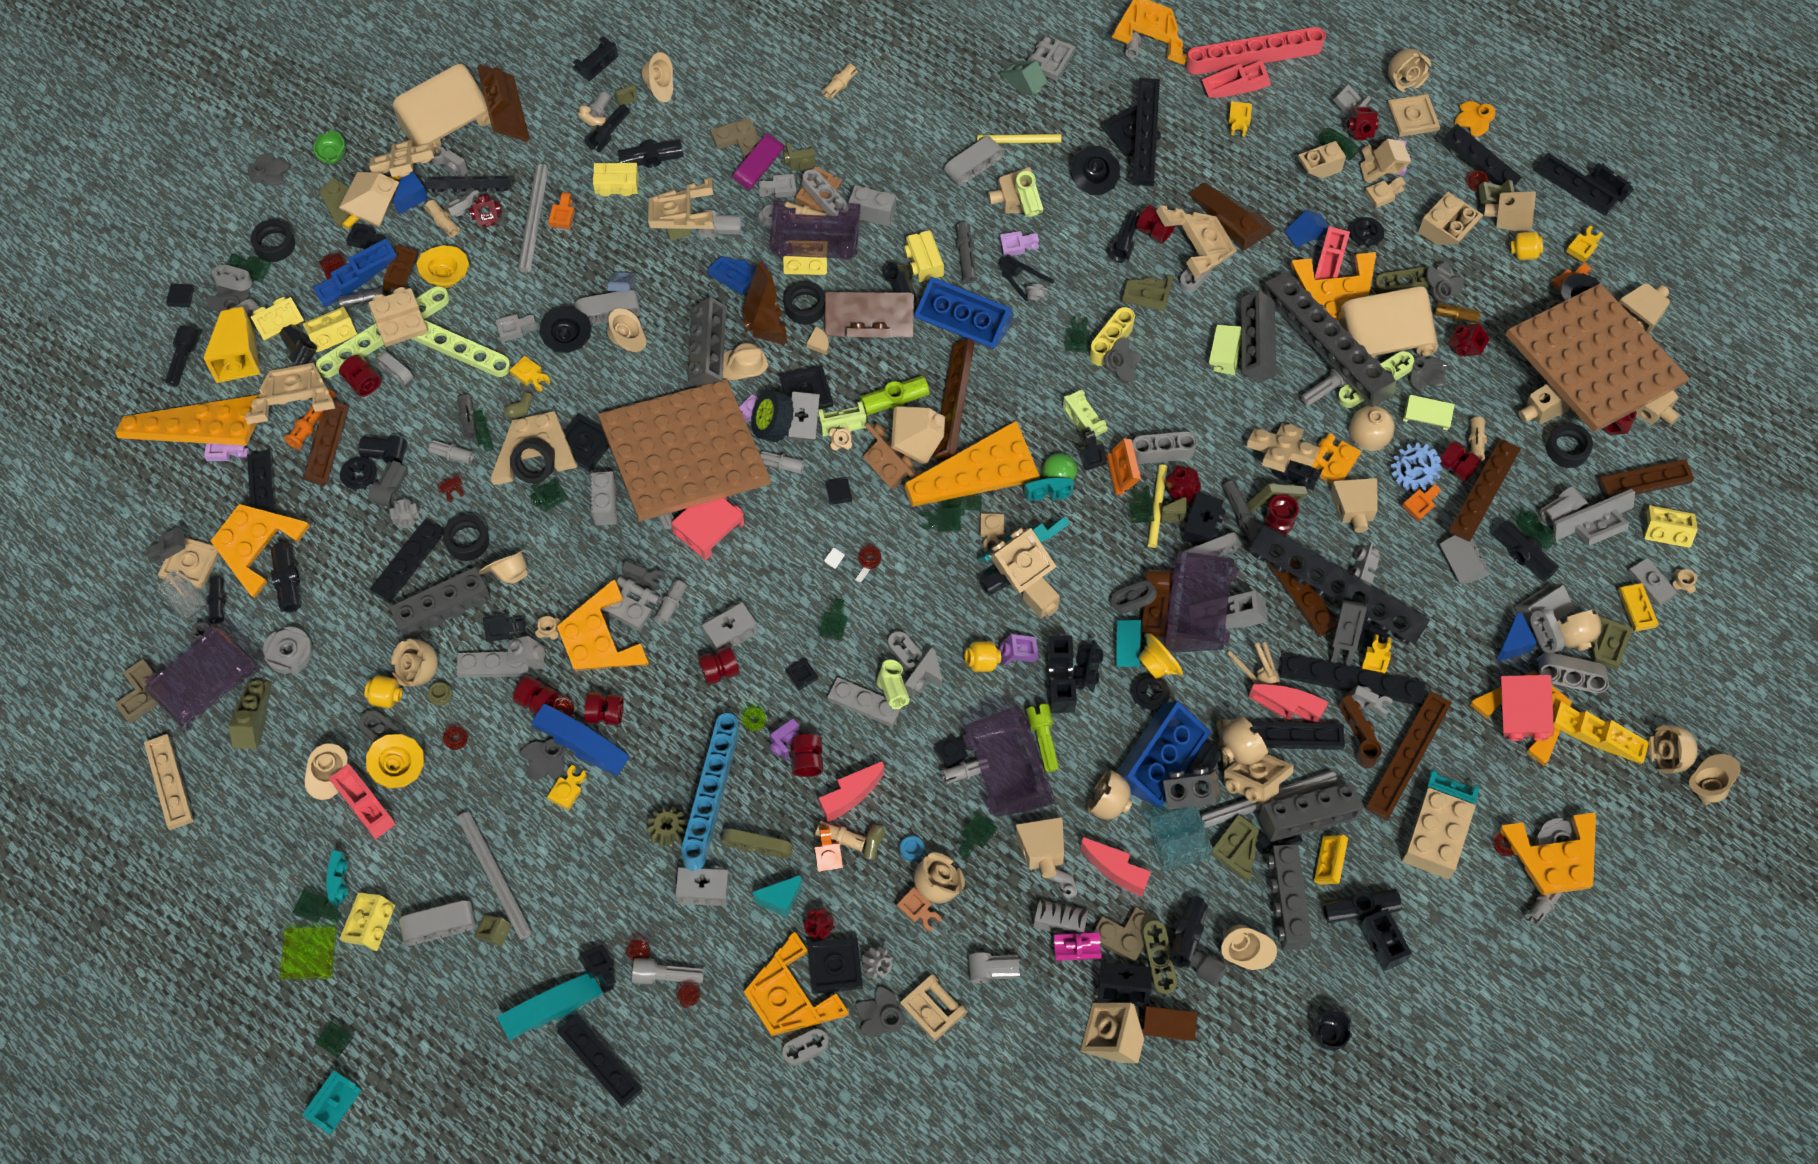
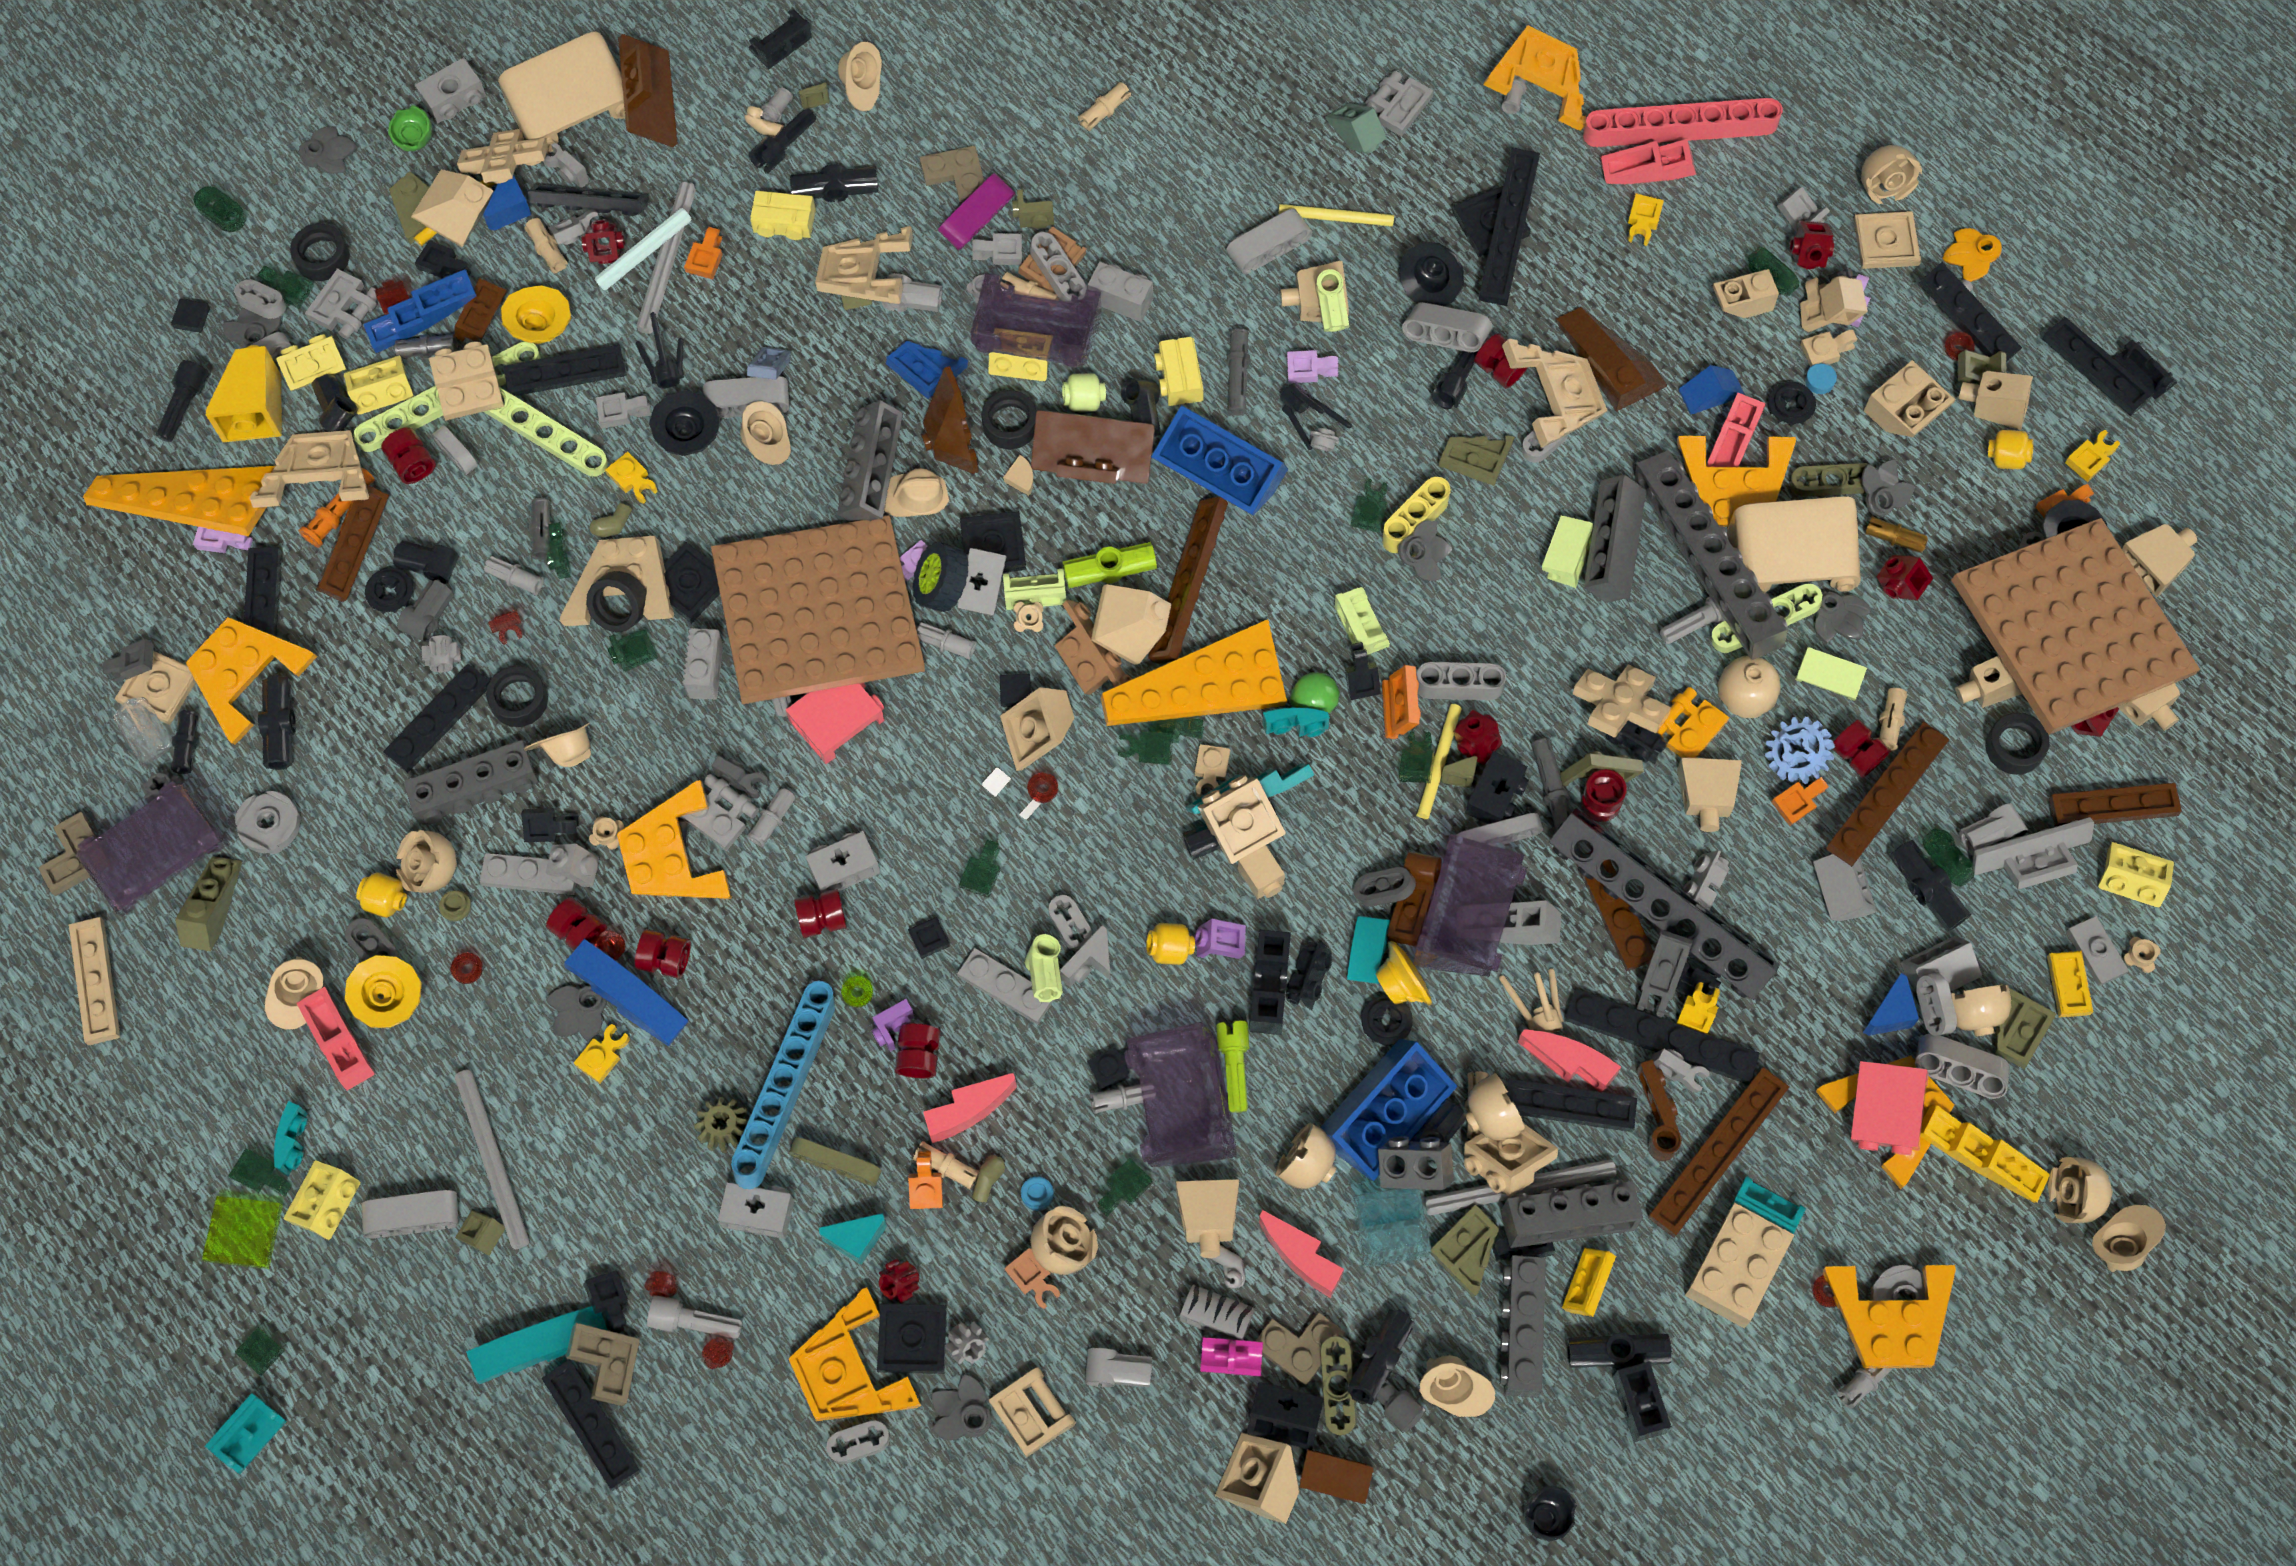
camera: 10 degrees right, 5 degrees up
(194, 218) = (222, 209): none -> clear green plate
(288, 274) = (334, 301): none -> light grey plate
(356, 118) = (438, 90): none -> light grey brick
(469, 303) = (564, 370): none -> black plate
(516, 212) = (643, 249): none -> light aqua axle
(545, 297) = (665, 373): none -> black plant
(608, 1006) = (613, 1355): none -> dark tan plate
(856, 278) = (1083, 392): none -> yellowish green head
(858, 513) = (1037, 725): none -> tan slope
(1113, 205) = (1447, 327): none -> light grey beam
(1384, 213) = (1821, 378): none -> dark azure tile

